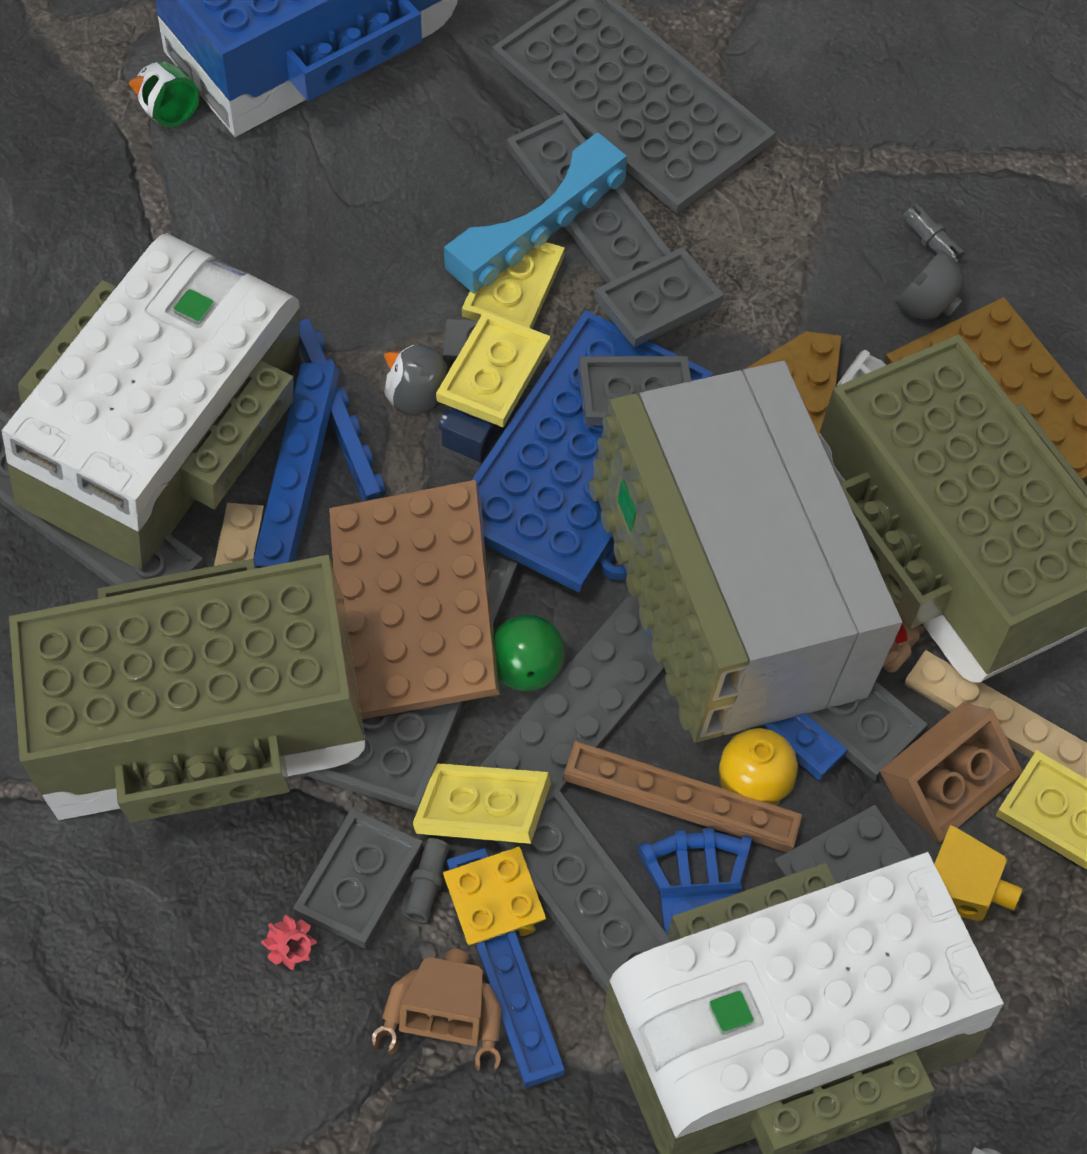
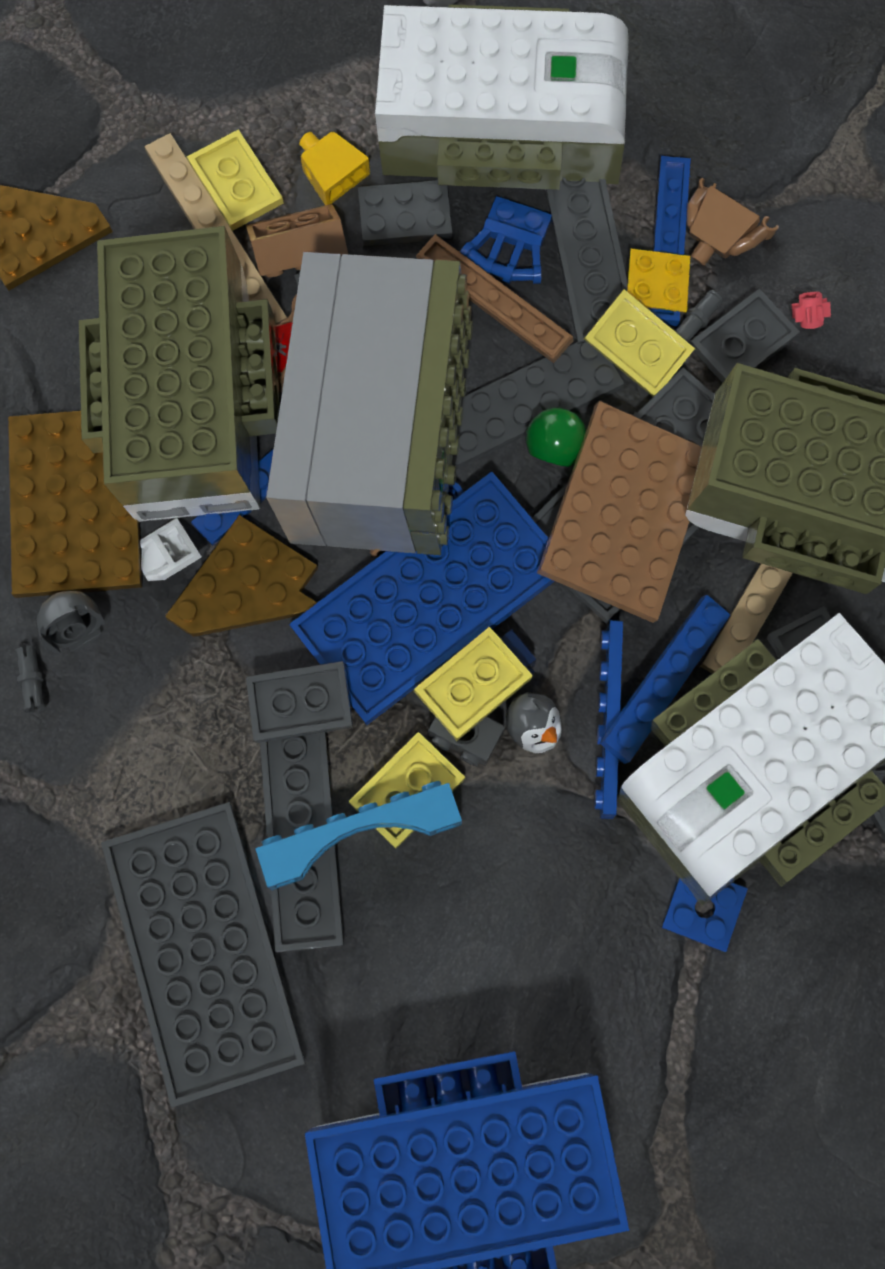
camera: 155 degrees left, 15 degrees up
(166, 93) = (638, 1143): green piece -> none
(620, 376) = (365, 617): dark grey plate -> none

